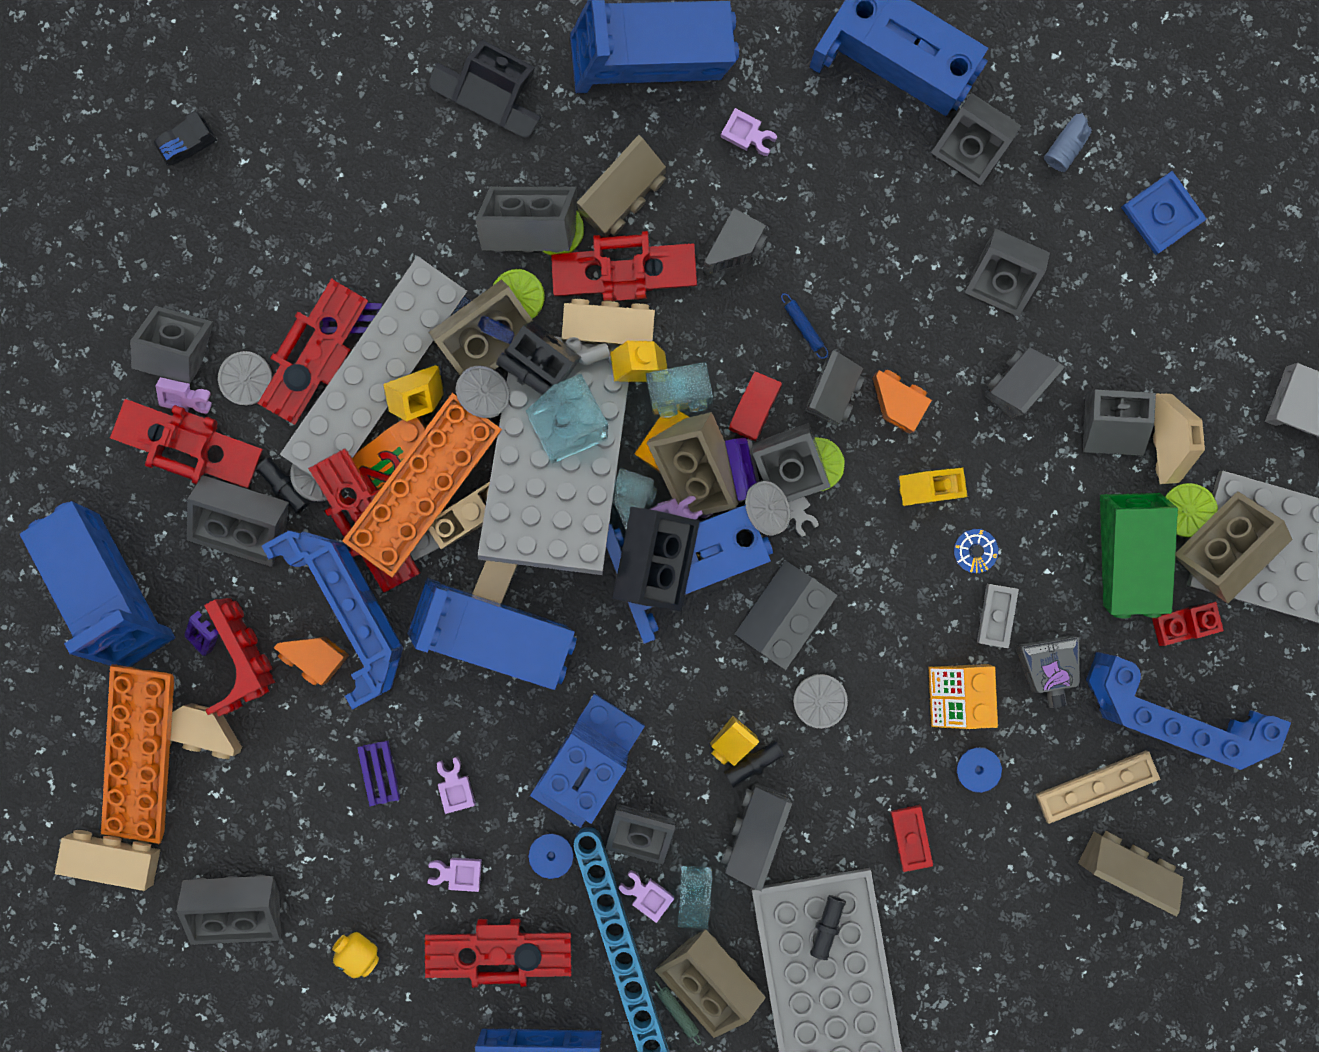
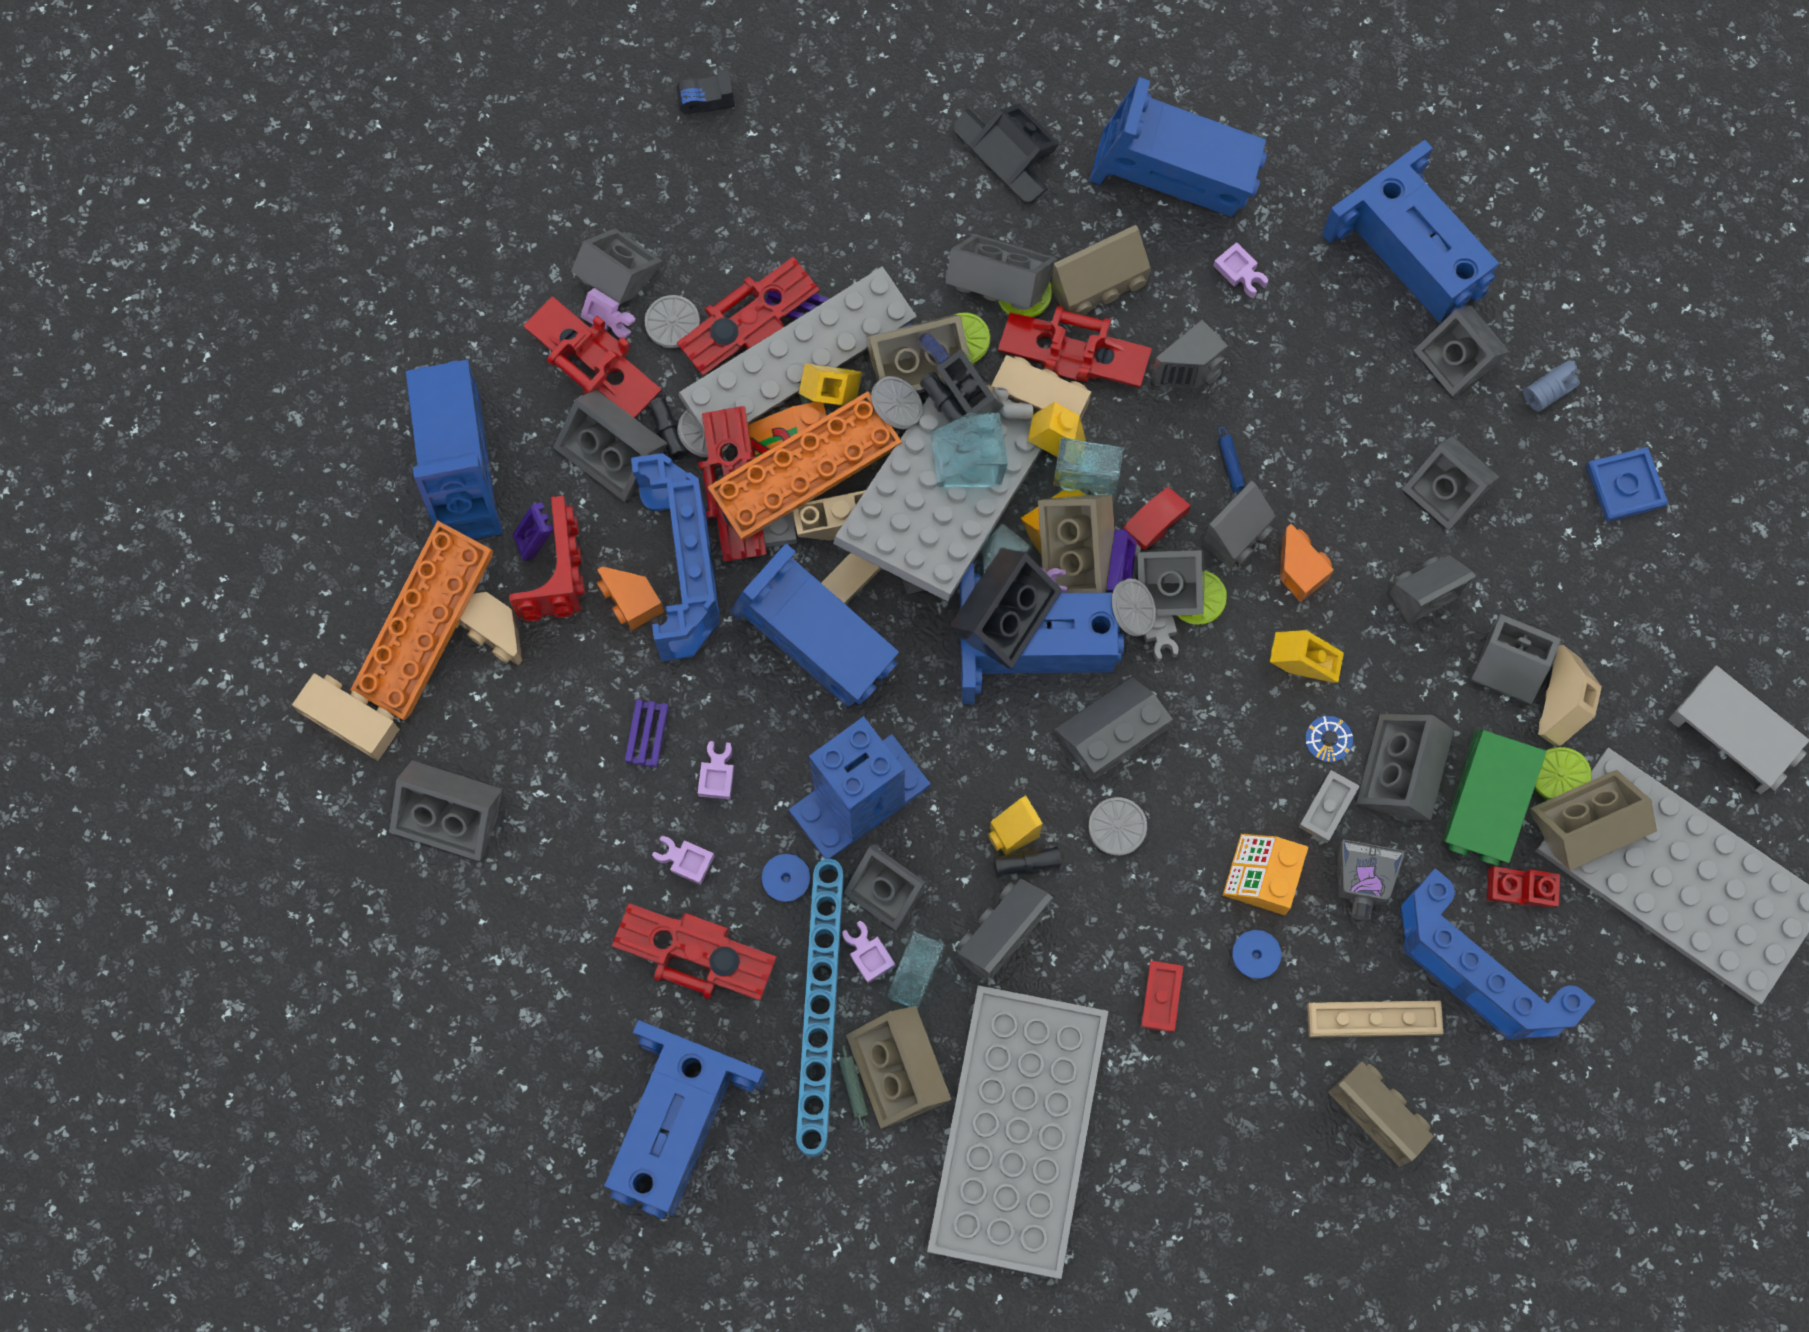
camera: 25 degrees right, 15 degrees down
(355, 955) = (550, 900): yellow head -> none
(827, 927) = (1042, 1048): black pin -> none
(1052, 555) = (1405, 765): none -> dark grey slope

